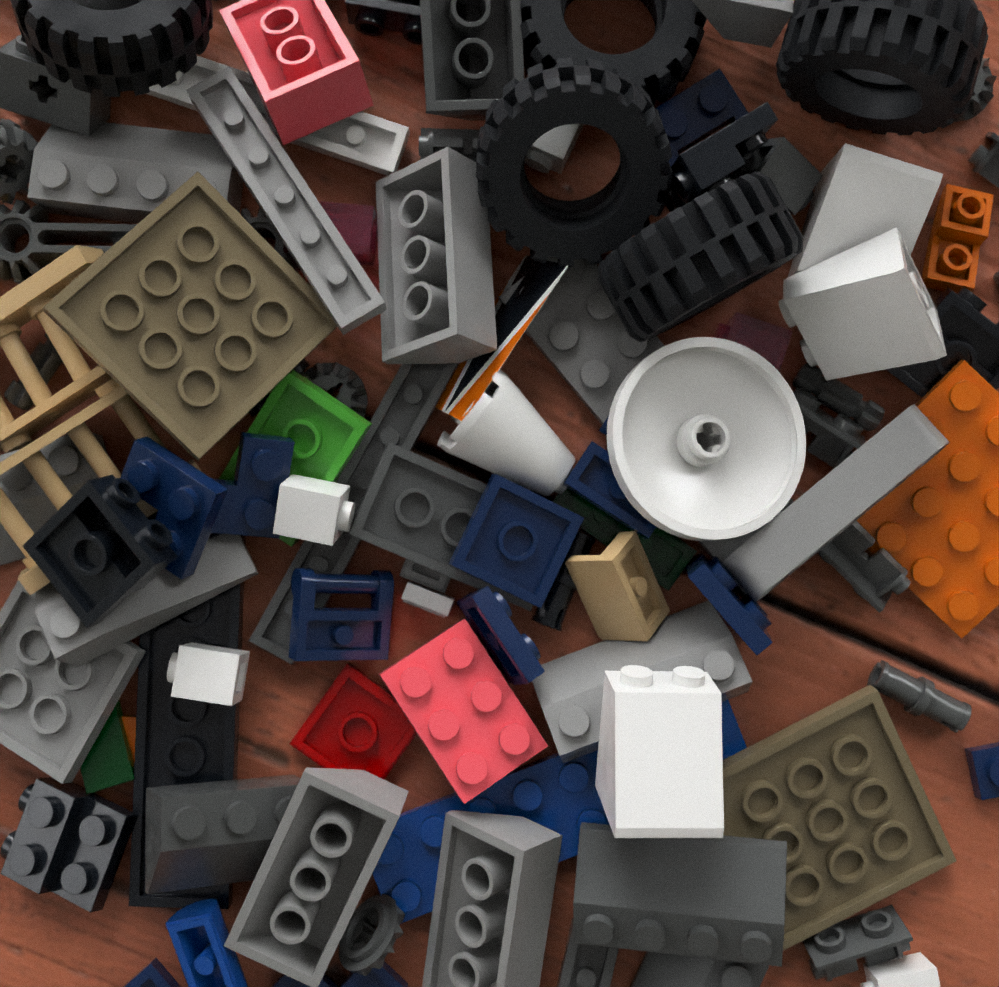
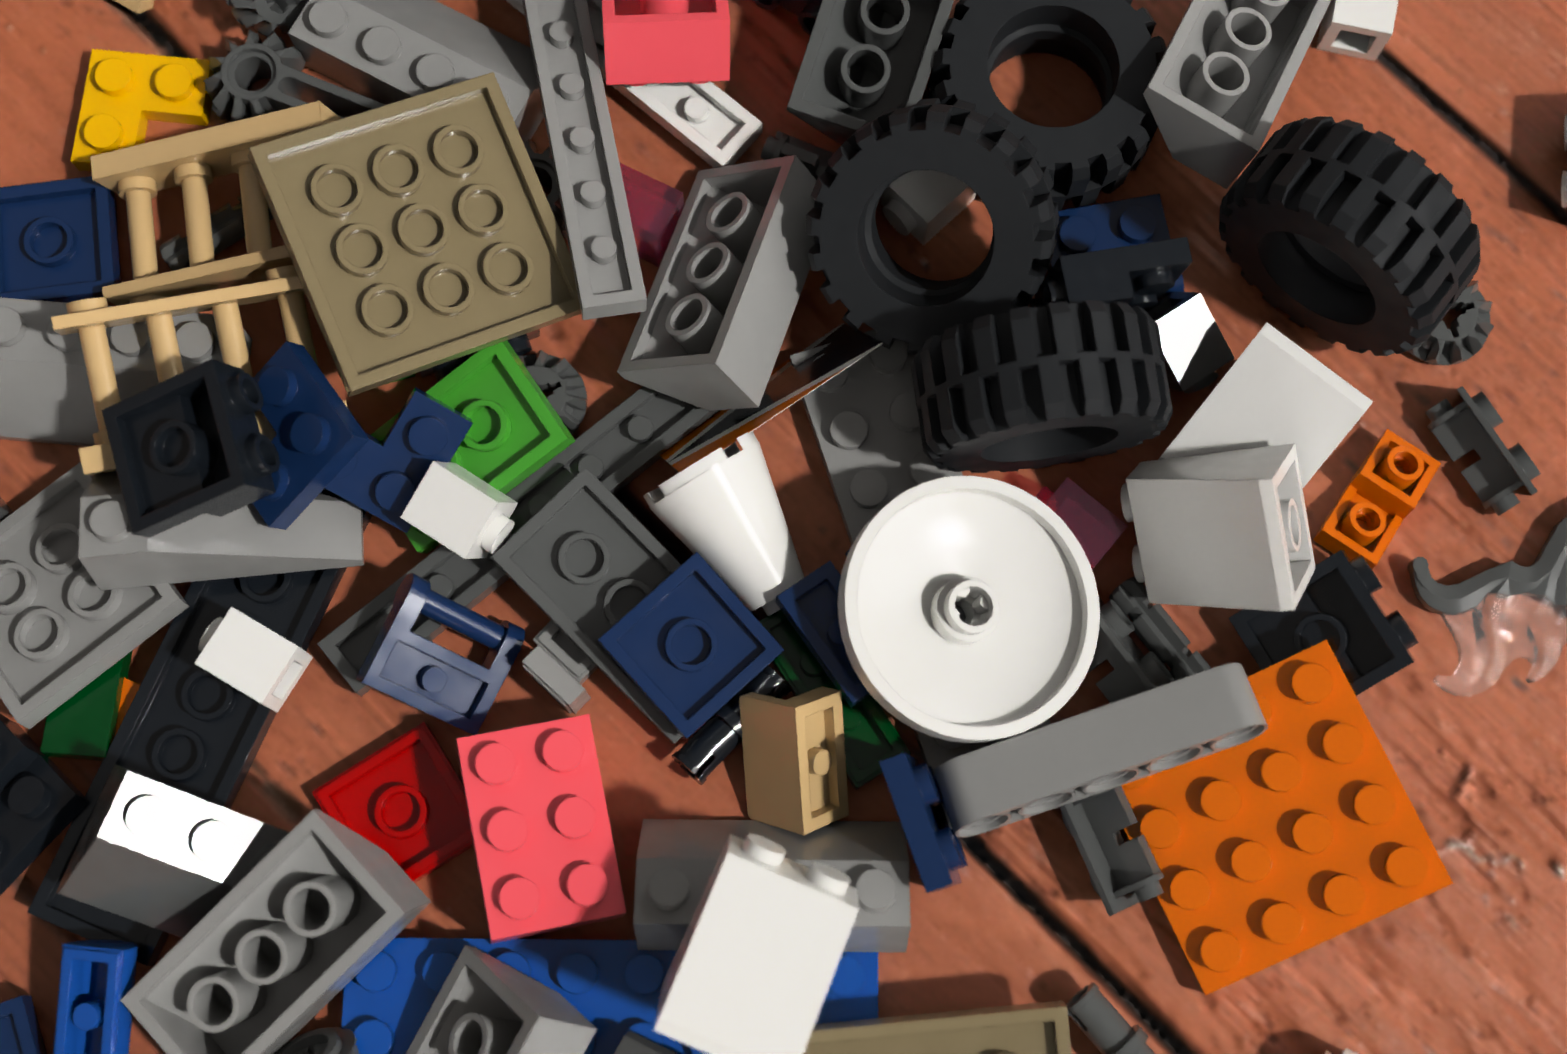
camera: 20 degrees right, 10 degrees down
(510, 651) = (618, 729): dark blue plate -> none

